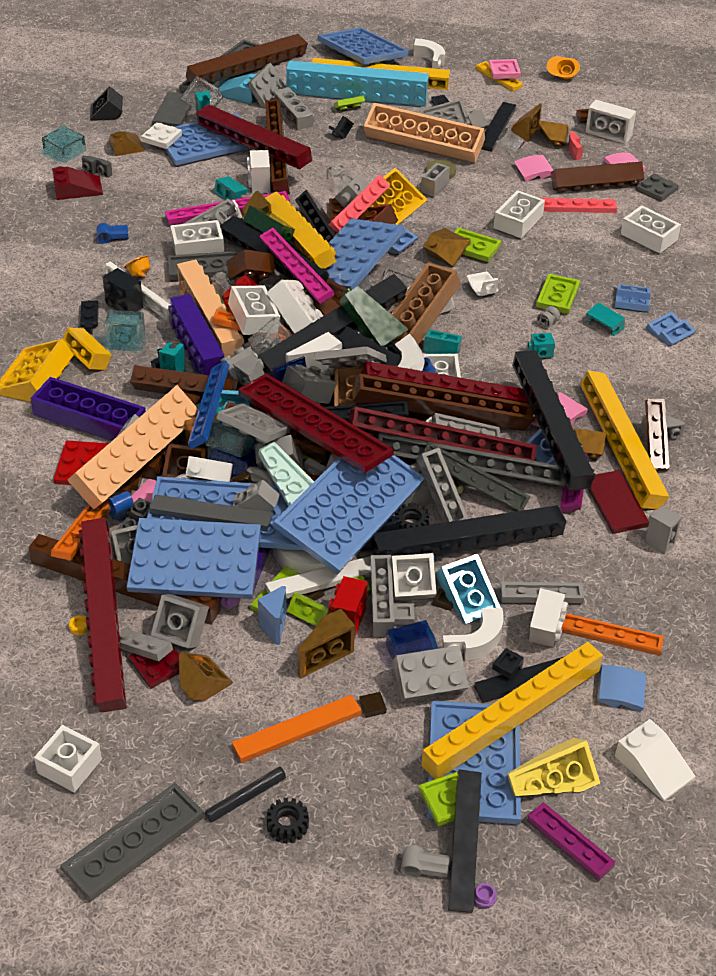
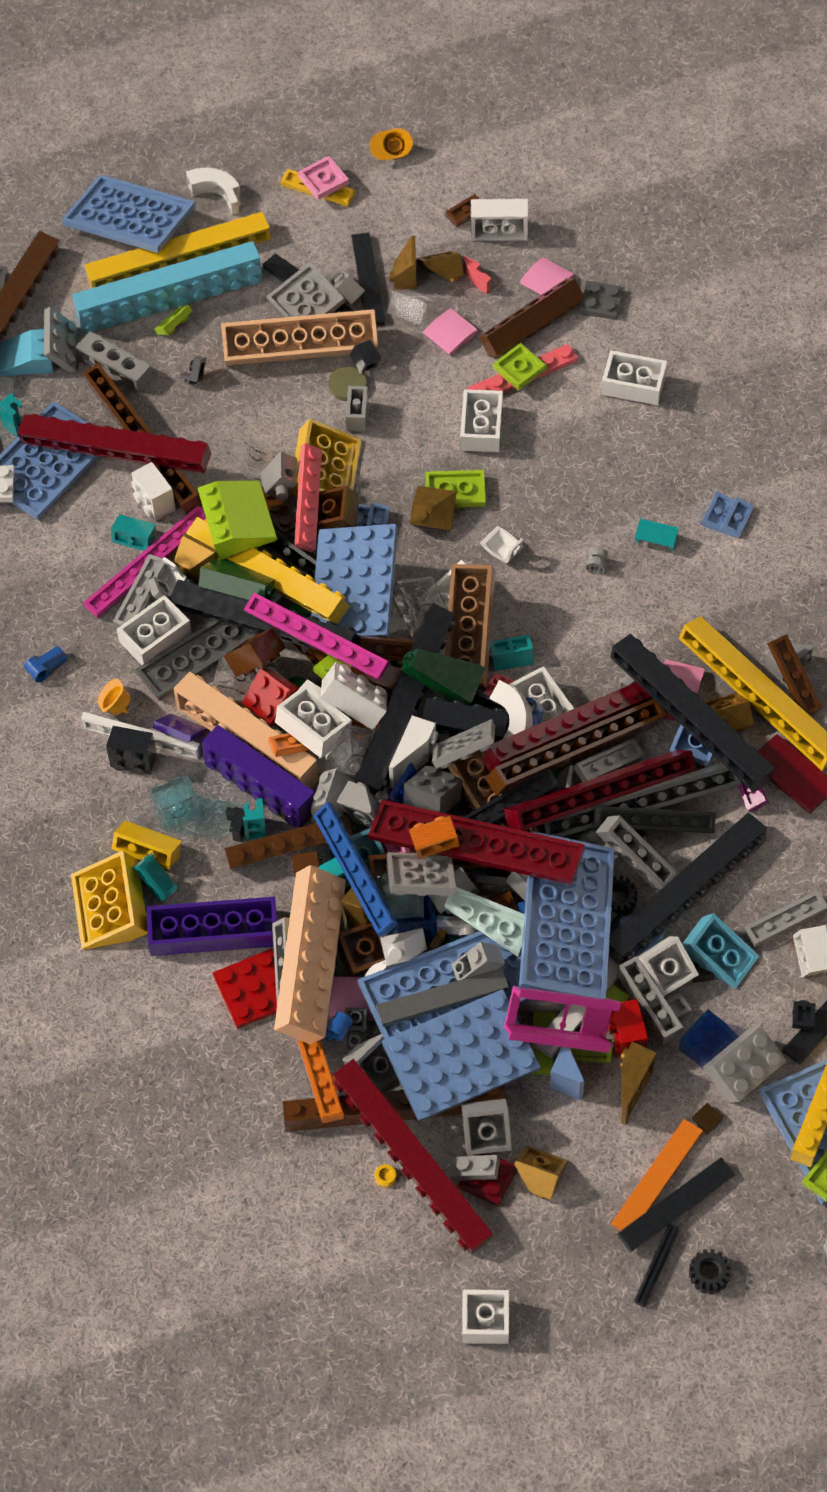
camera: 25 degrees left, 15 degrees up
(75, 366) = (155, 877): none -> teal hinge
(89, 315) = (109, 795): black hinge -> none
(132, 841) = (593, 1360): dark grey plate -> none
(162, 291) = (179, 728): none -> tile
(281, 402) = (434, 837): none -> orange brick
(296, 754) = (675, 1204): none -> black tile
(298, 192) = (236, 516): none -> lime slope
(320, 585) = (592, 1029): none -> dark pink piece
(462, 155) = (365, 356): none -> black panel
(483, 640) = (766, 987): white arch -> none
(543, 344) = (614, 606): teal brick -> none
(558, 292) = (587, 520): lime plate -> none
(569, 196) = (519, 366): none -> lime tile
(632, 297) = (665, 486): medium blue slope -> none

